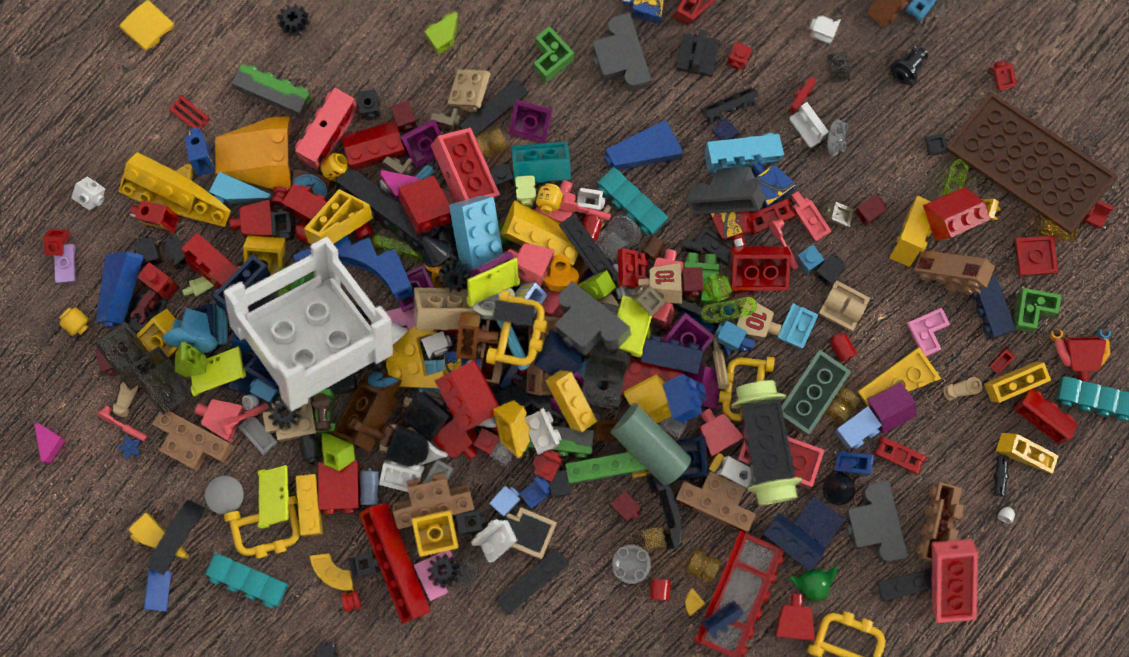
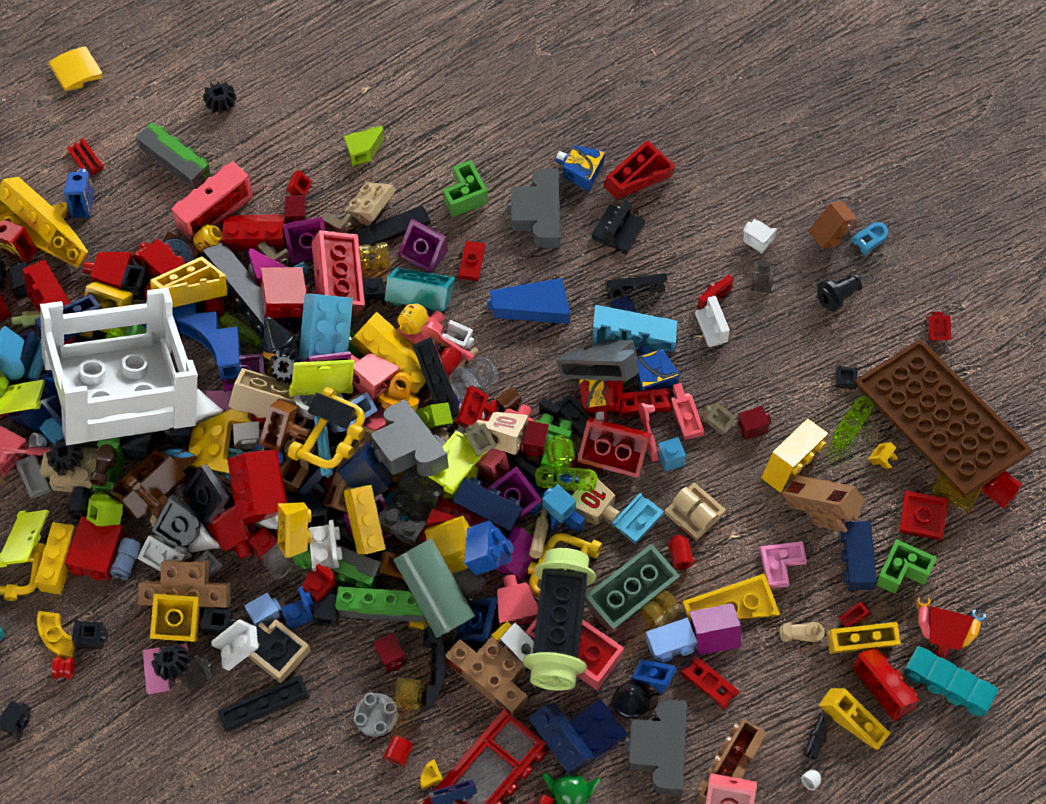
camera: 20 degrees right, 15 degrees down
(236, 192) = (101, 238): medium azure slope -> none
(256, 153) = (135, 209): light orange wedge -> none
(368, 104) = (264, 191): black brick -> none
(394, 563) = (122, 641): red brick -> none
(397, 89) = (299, 184): none -> red brick
(526, 190) = (391, 306): yellowish green brick -> none
(577, 121) = (472, 260): none -> red plate
(632, 201) = (502, 350): teal brick -> none
(632, 379) = (438, 517): none -> red piece
(703, 566) = (454, 738): clear yellow wheel -> none
(739, 56) = (661, 240): red bracket -> none
(830, 270) = (690, 470): black brick -> none
(836, 137) = (738, 341): light grey dish -> none
(955, 213) = (843, 446): red slope -> none

